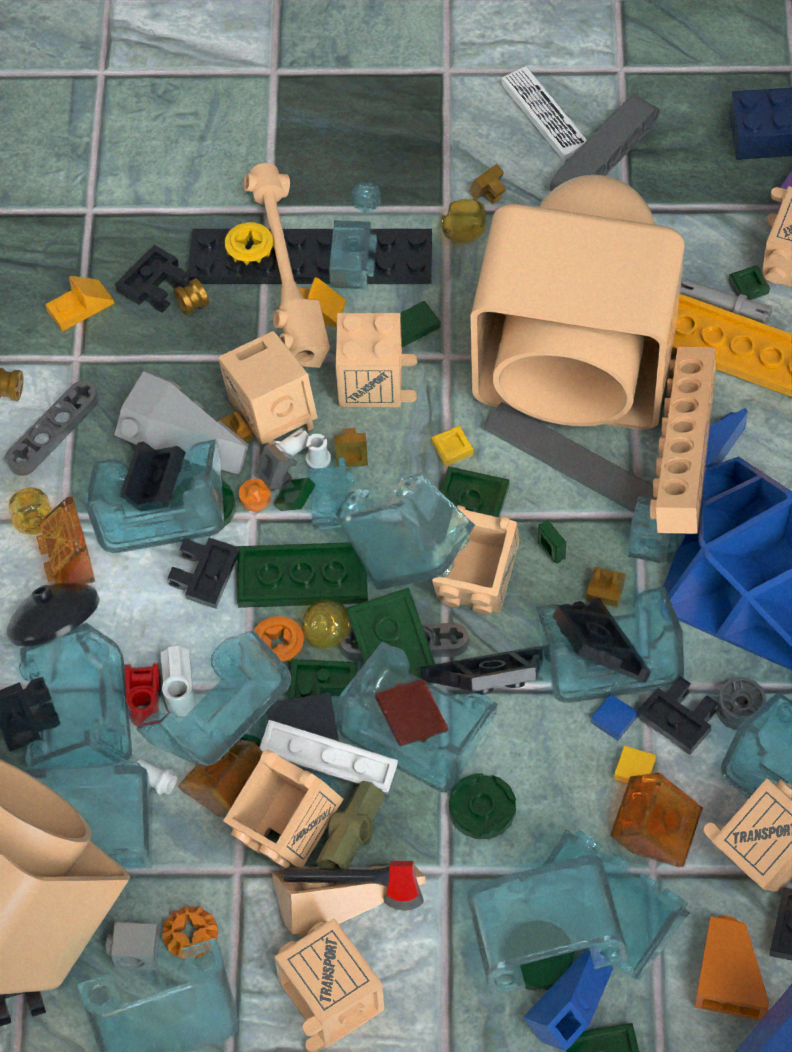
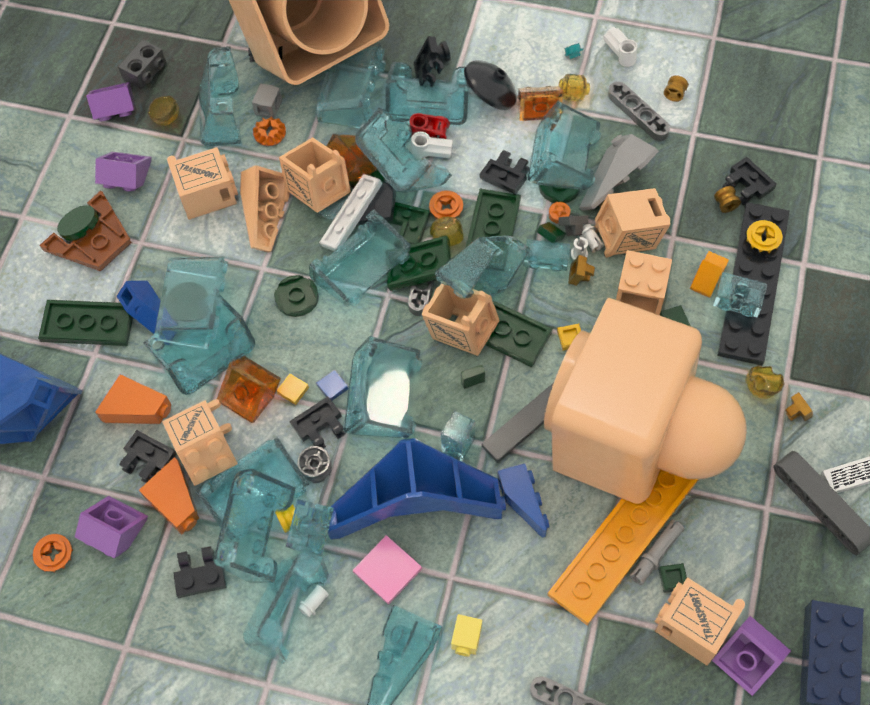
camera: 105 degrees right, 5 degrees up
(80, 303) = (738, 138): light orange slope -> none
(152, 476) = (579, 148): black bracket -> none
(298, 317) = (689, 253): light nougat bar -> none
(351, 827) = (297, 214): olive piece -> none
(366, 196) = (803, 326): clear light blue tile -> none
(399, 877) = (250, 224): piece -> none
(411, 712) = (362, 258): clear red piece -> none
(488, 671) = (377, 307): black wing -> none
(599, 638) = (380, 376): black wing -> none
(606, 586) = (432, 405): pearl gold tile -> none
(684, 441) = (507, 471): light nougat brick -> none

